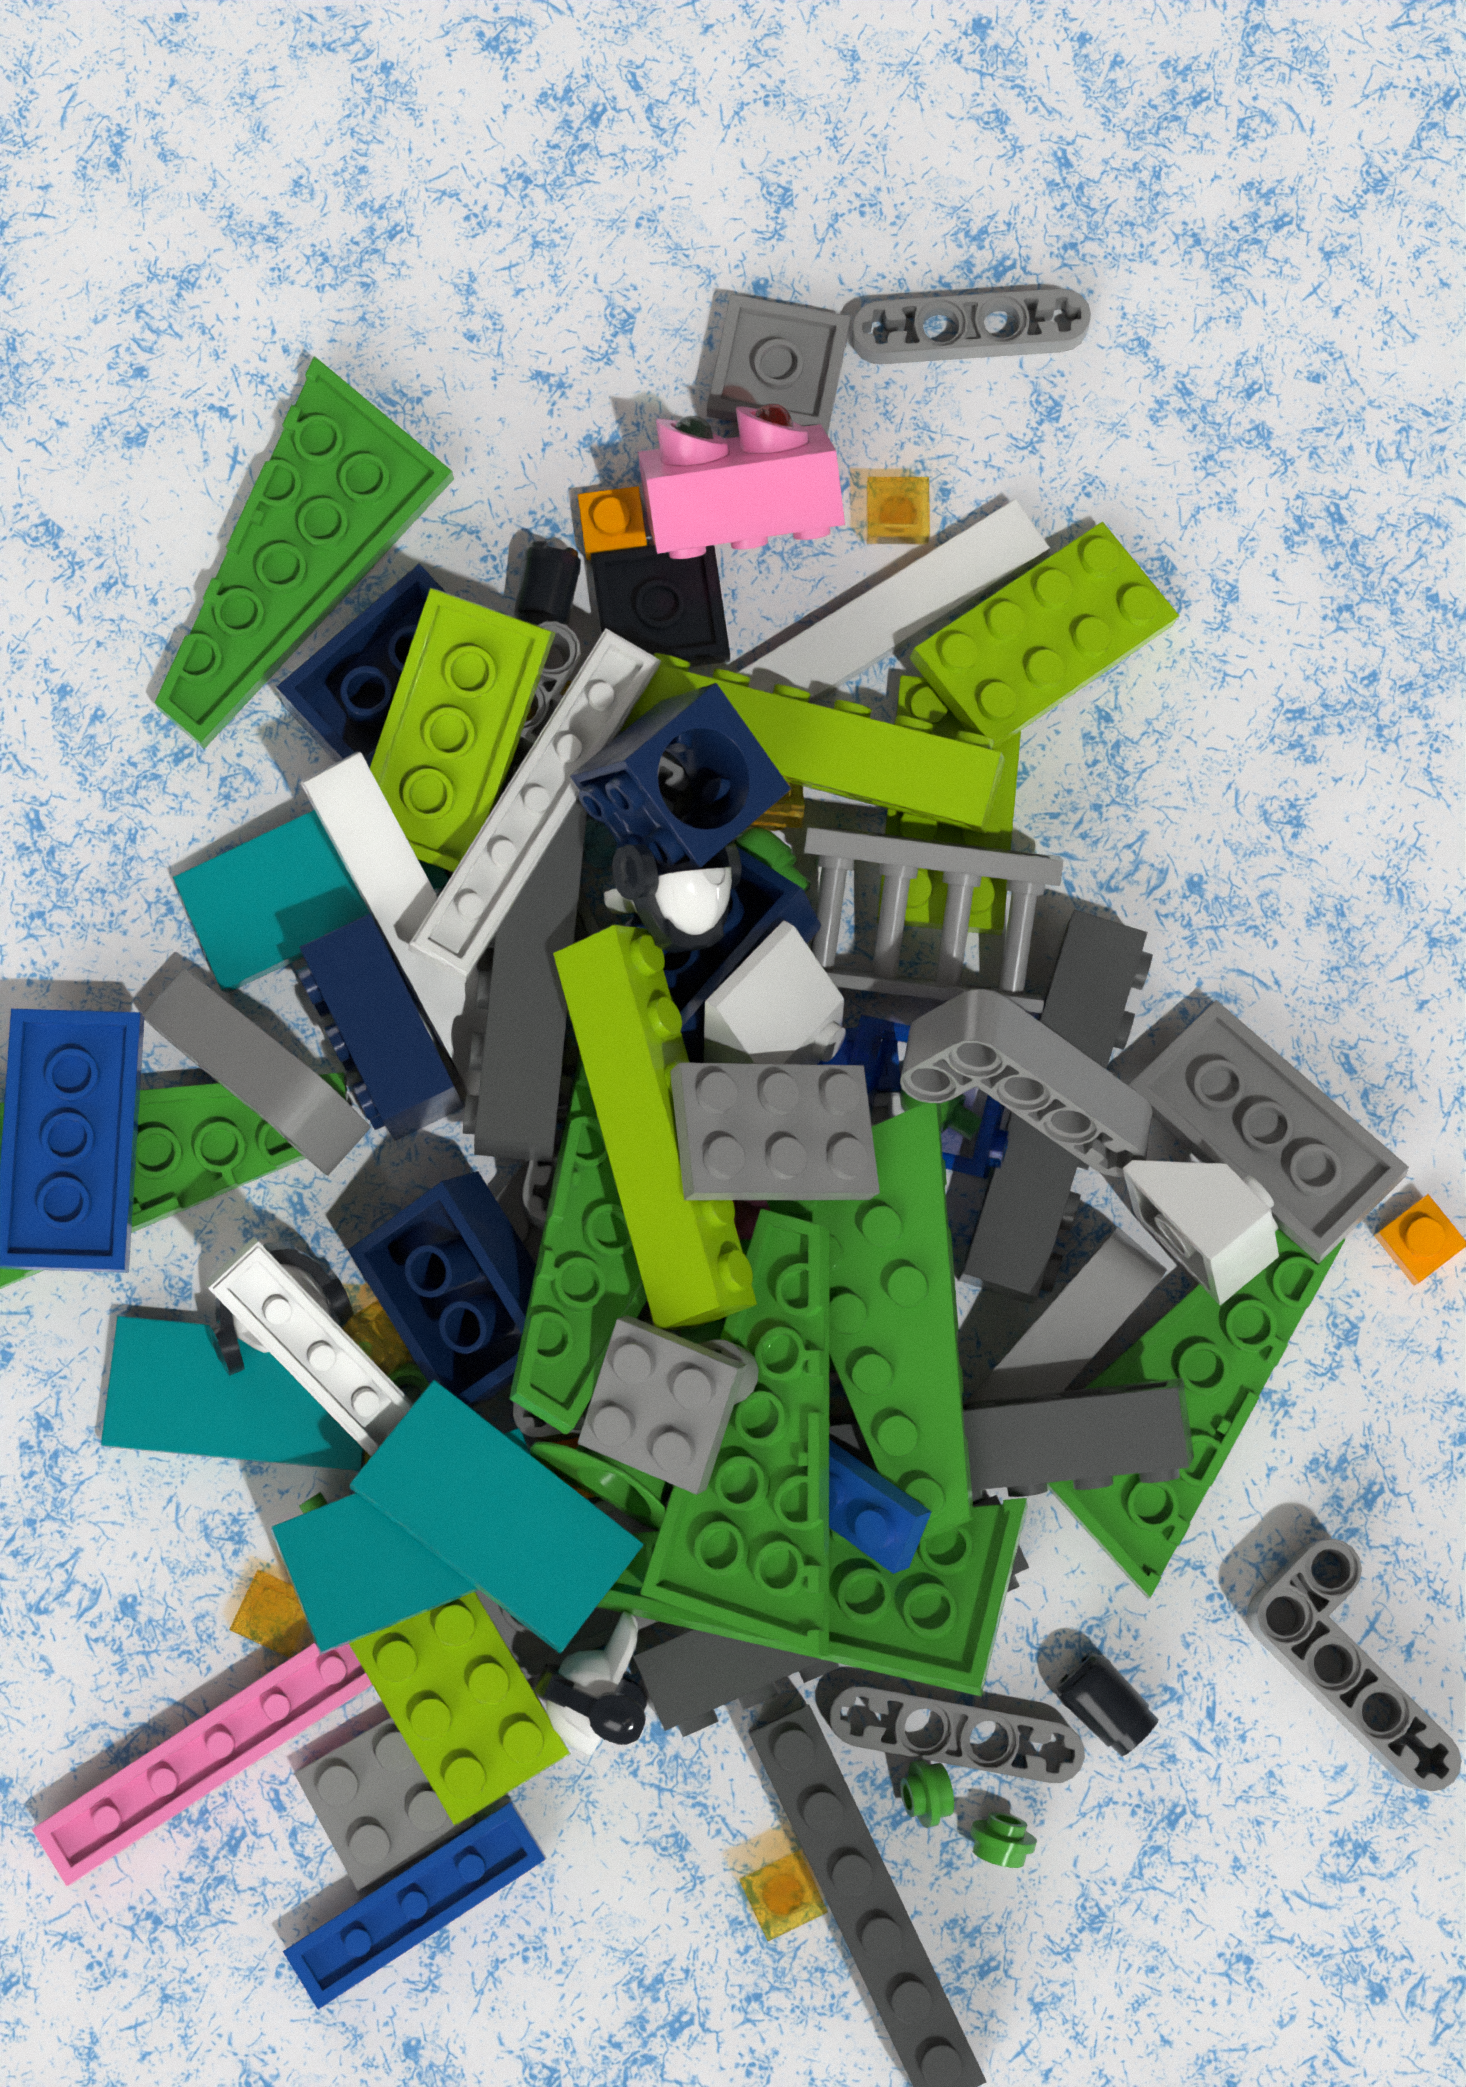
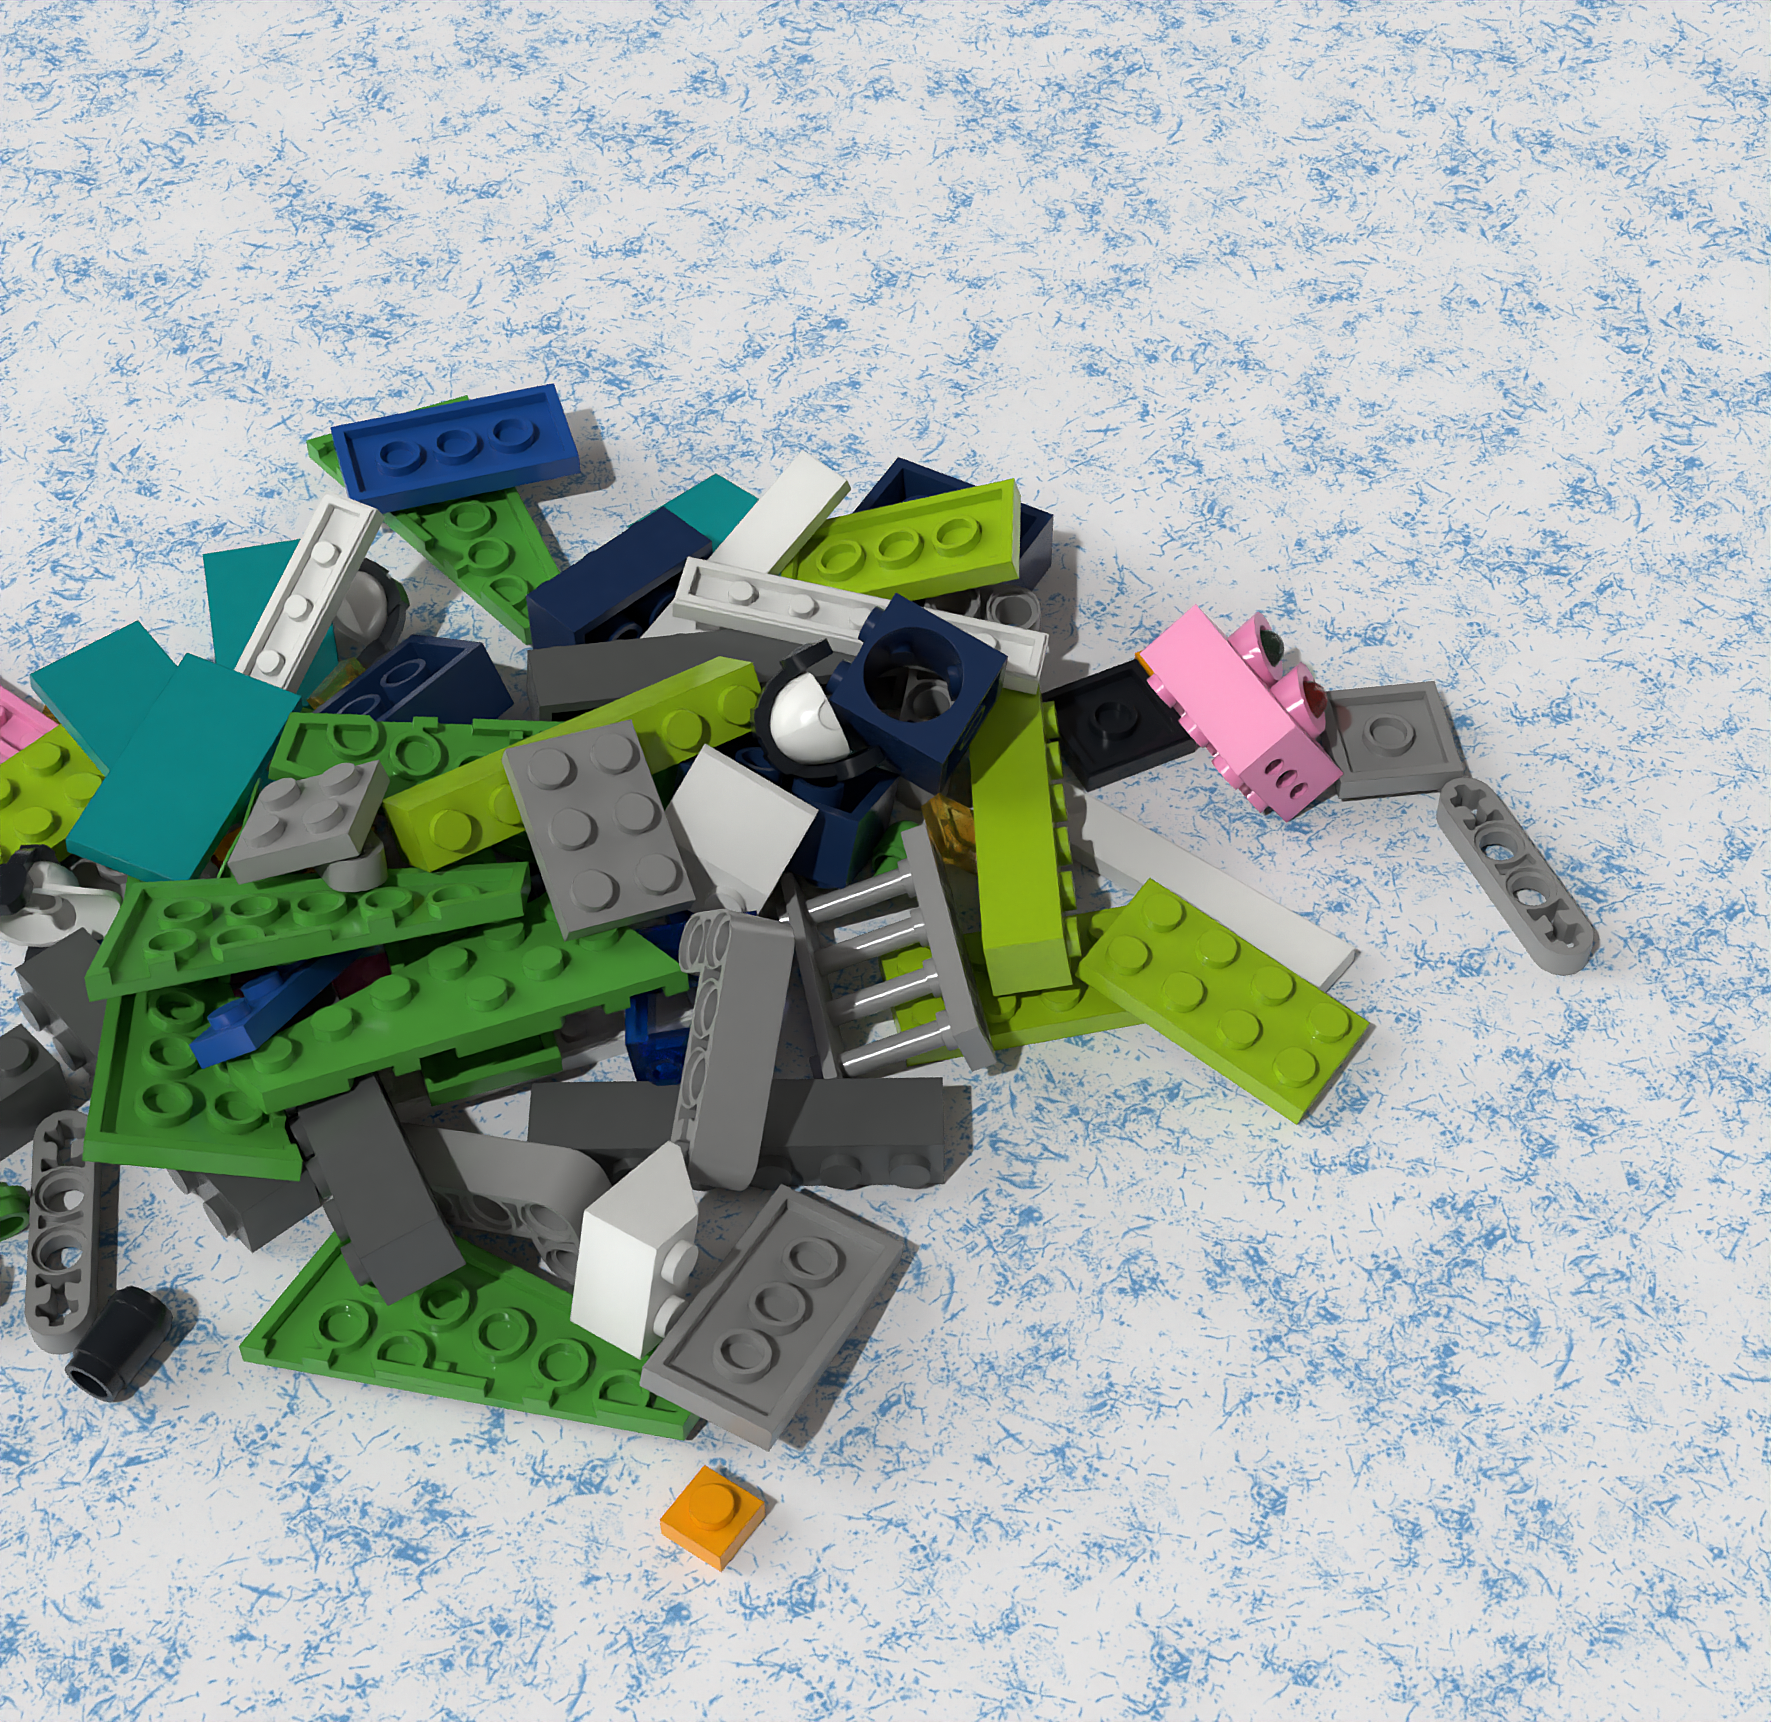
camera: 75 degrees right, 30 degrees down
(257, 1071) = (543, 535): light grey beam -> none
(309, 533) = (1091, 482): bright green wing -> none
(547, 584) = (1086, 635): black piece -> none
(897, 510) = (1293, 861): clear yellow plate -> none
(1360, 1673) = (130, 1643): light grey beam -> none

